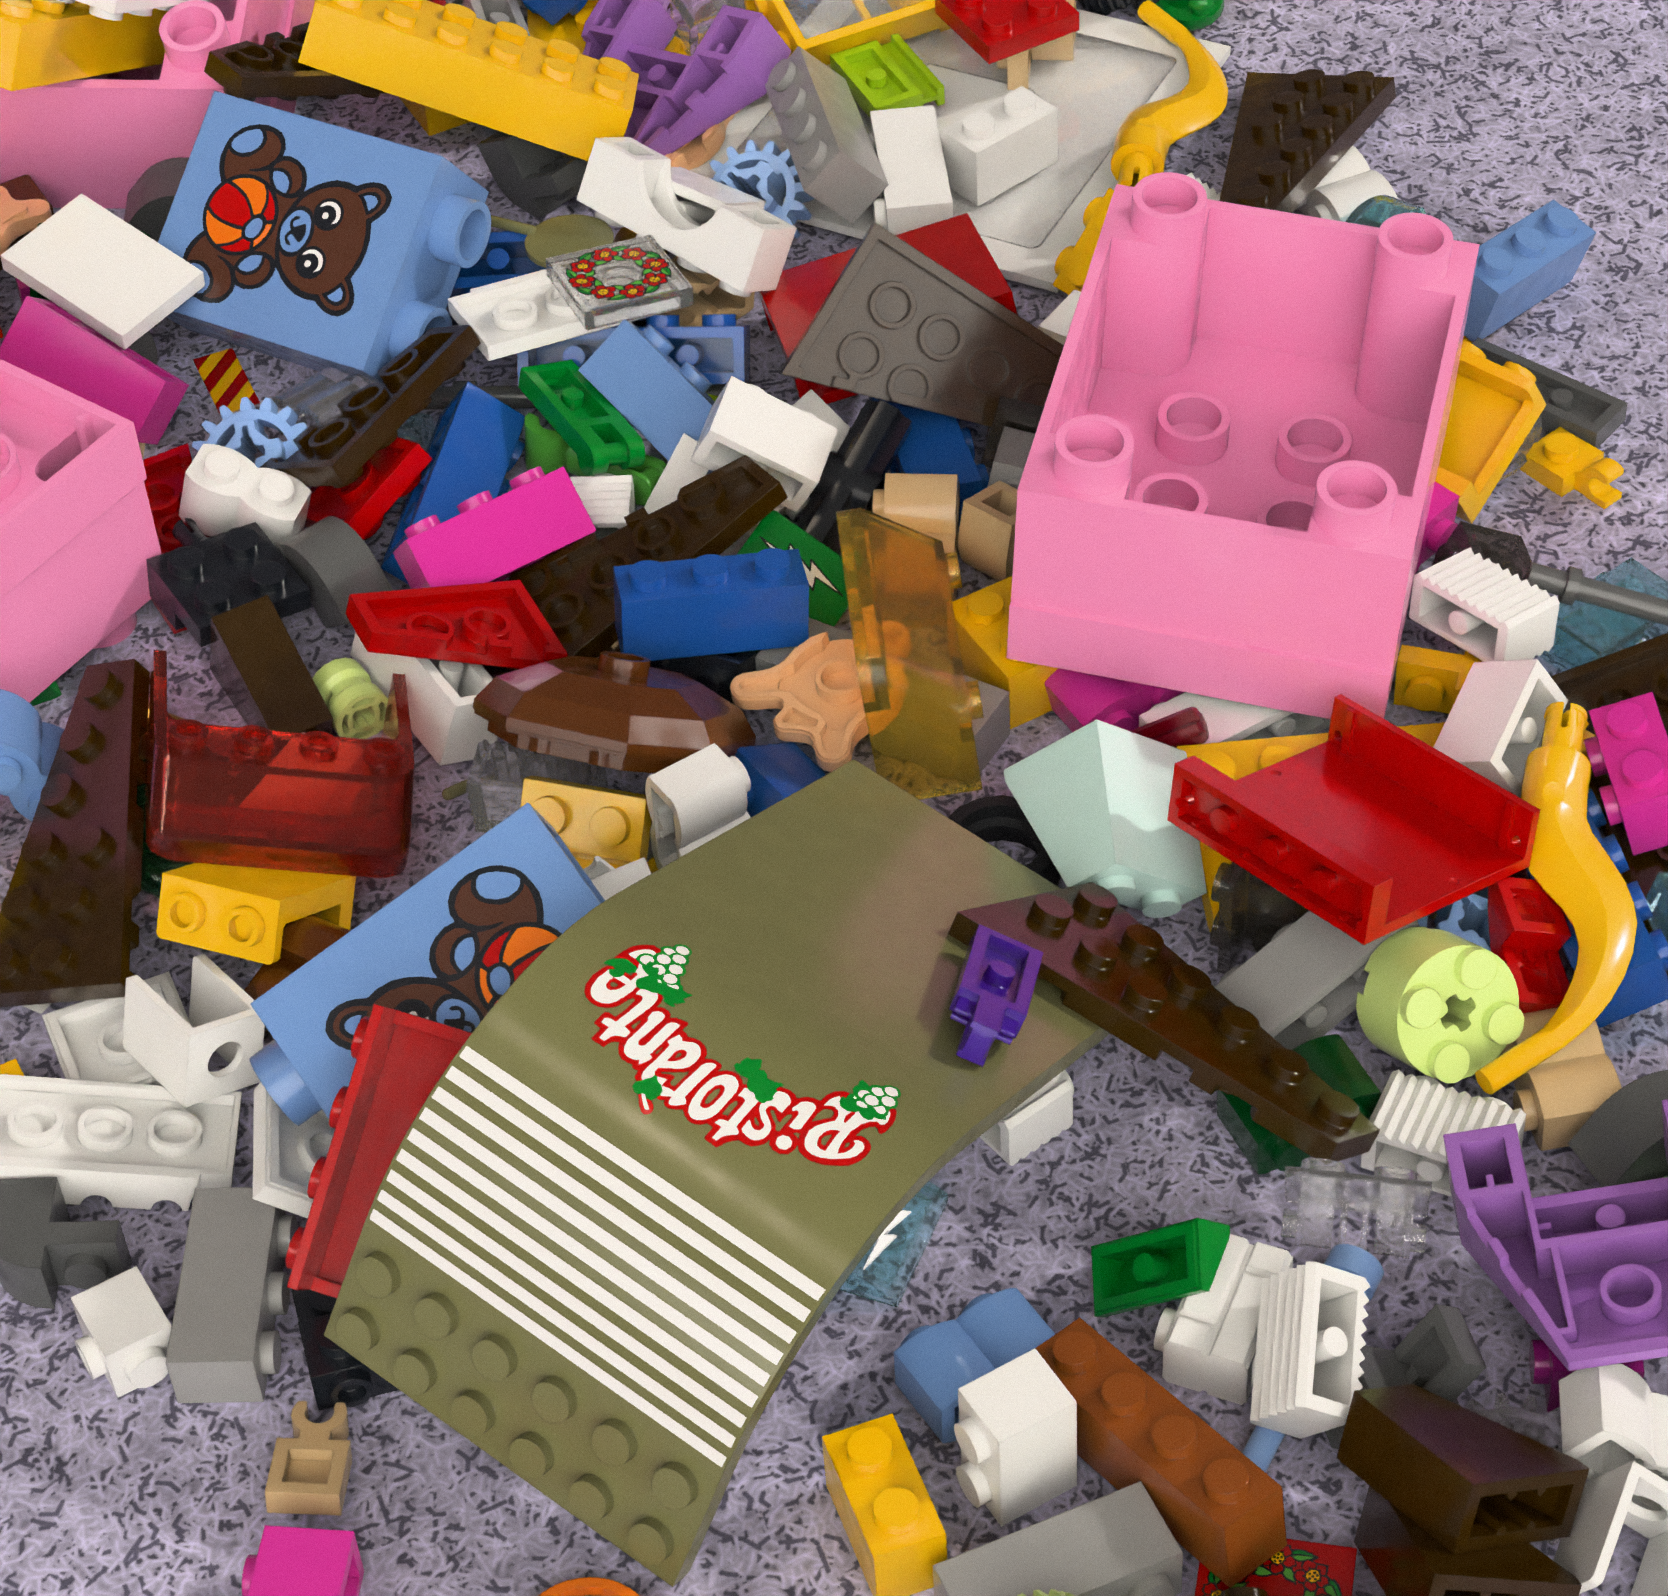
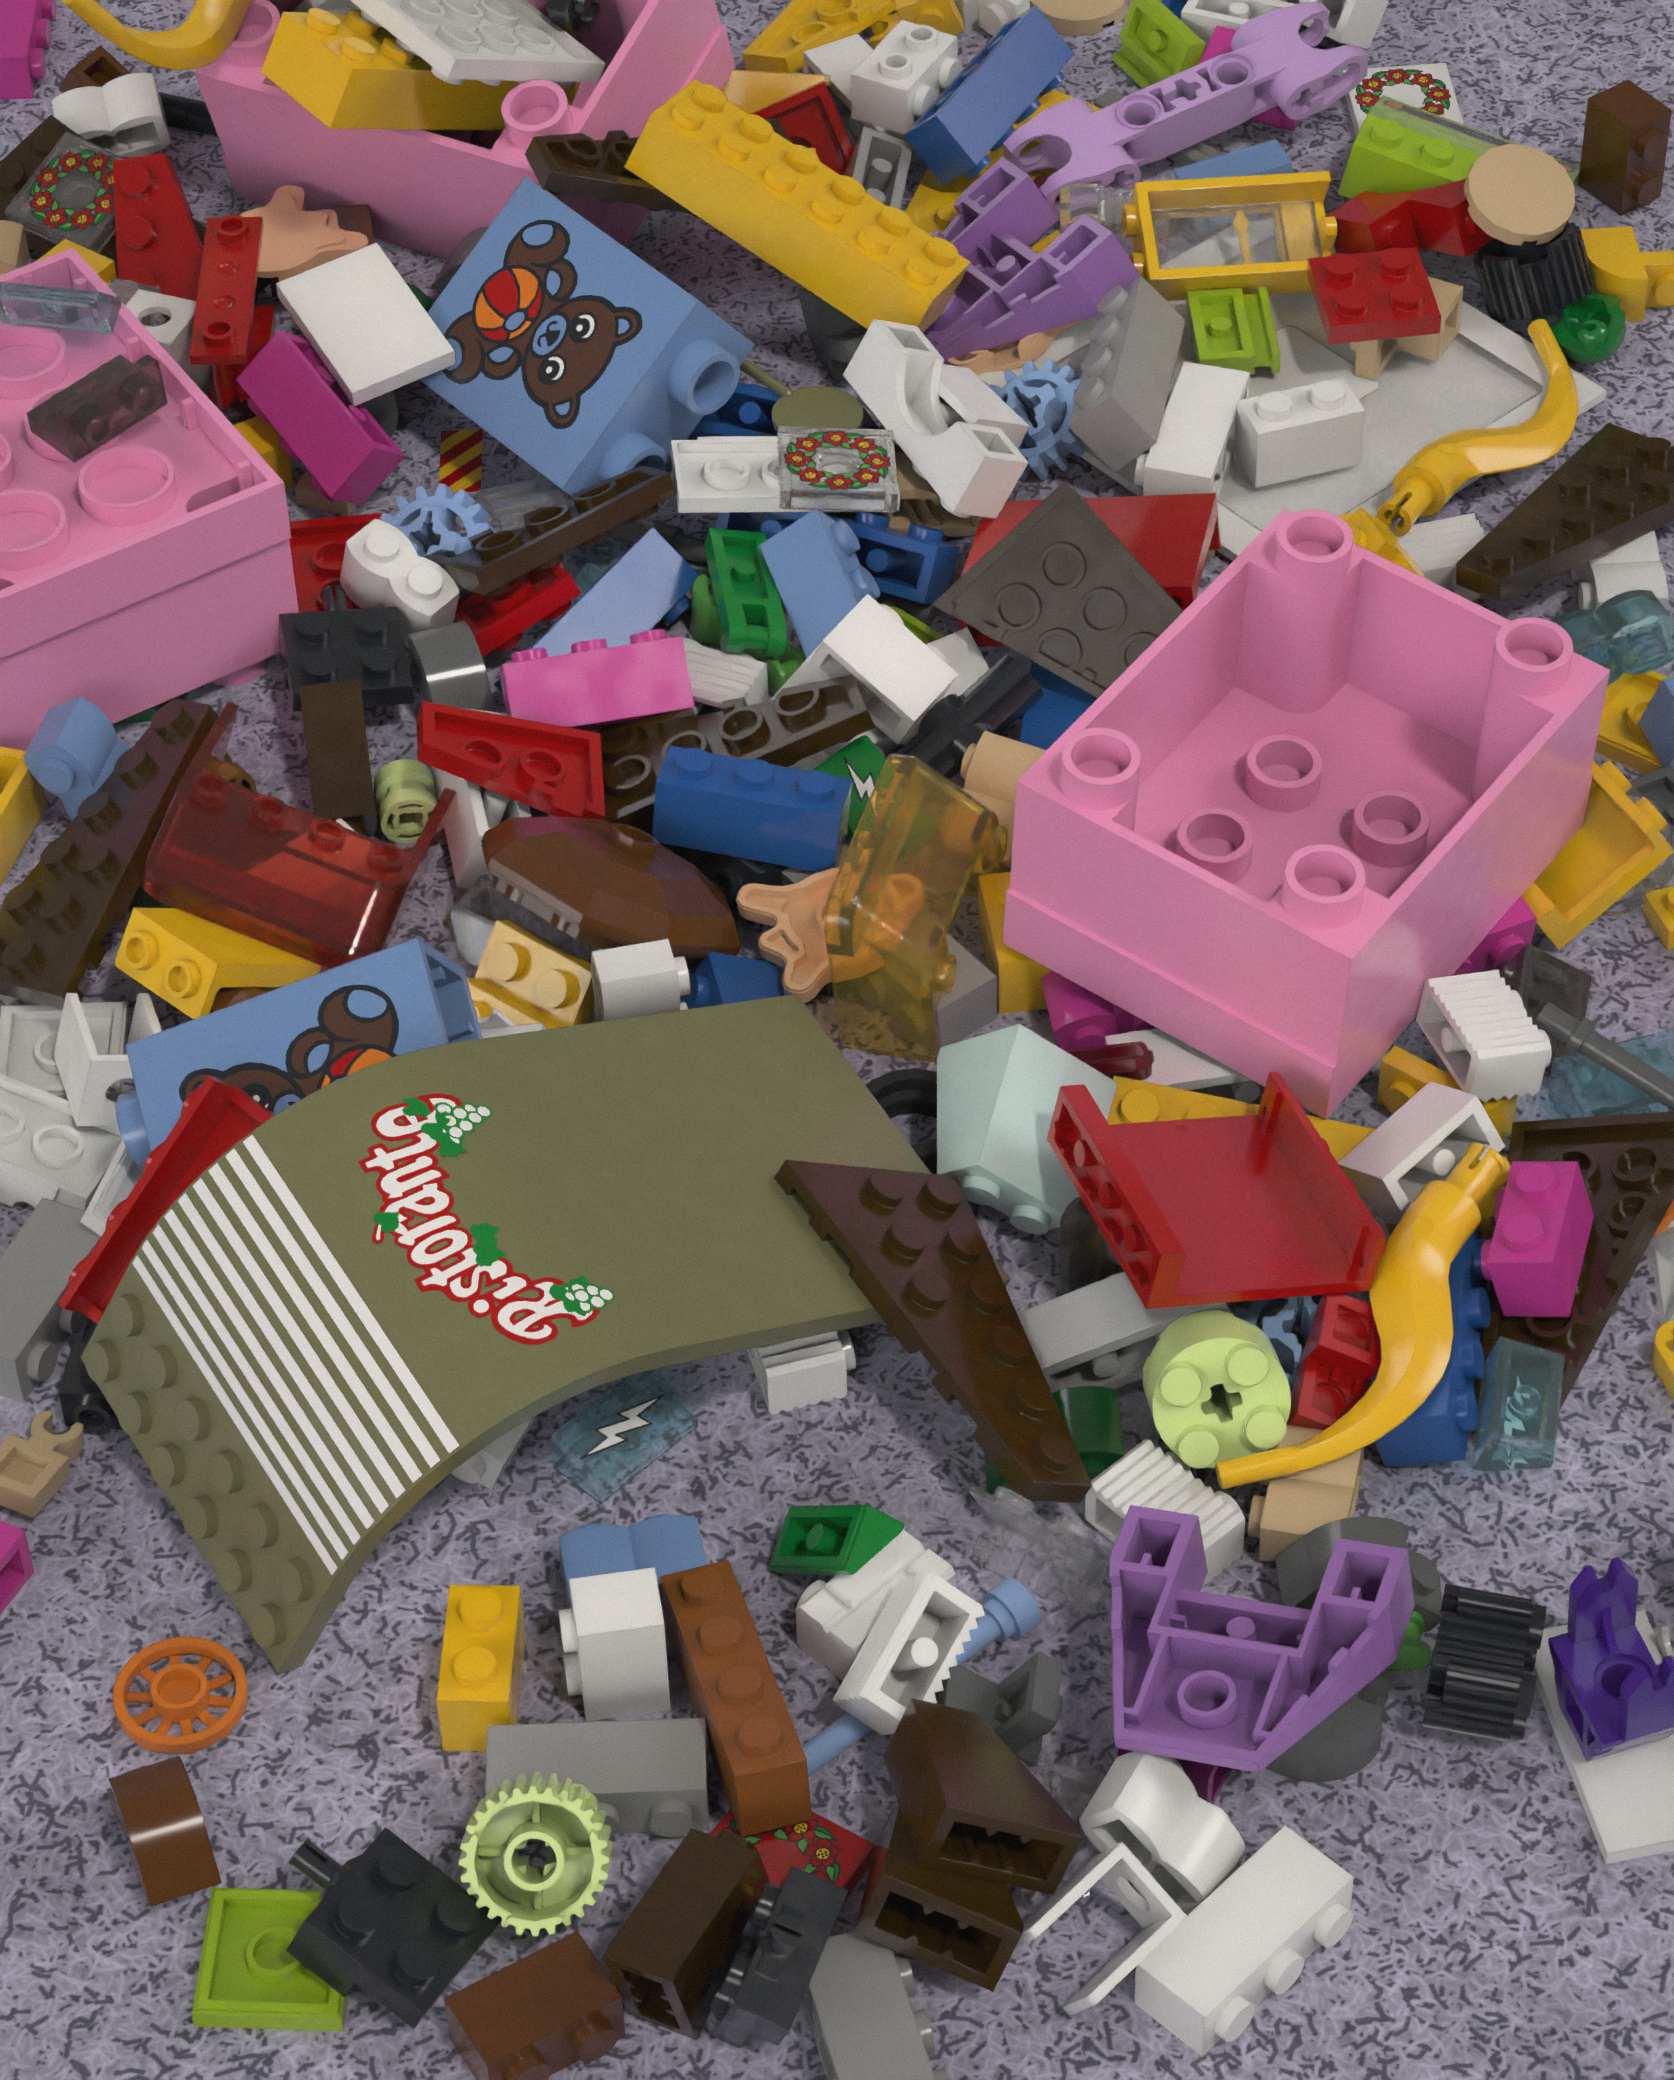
camera: 20 degrees right, 0 degrees up
(993, 992) = (767, 1239): dark purple hinge -> none

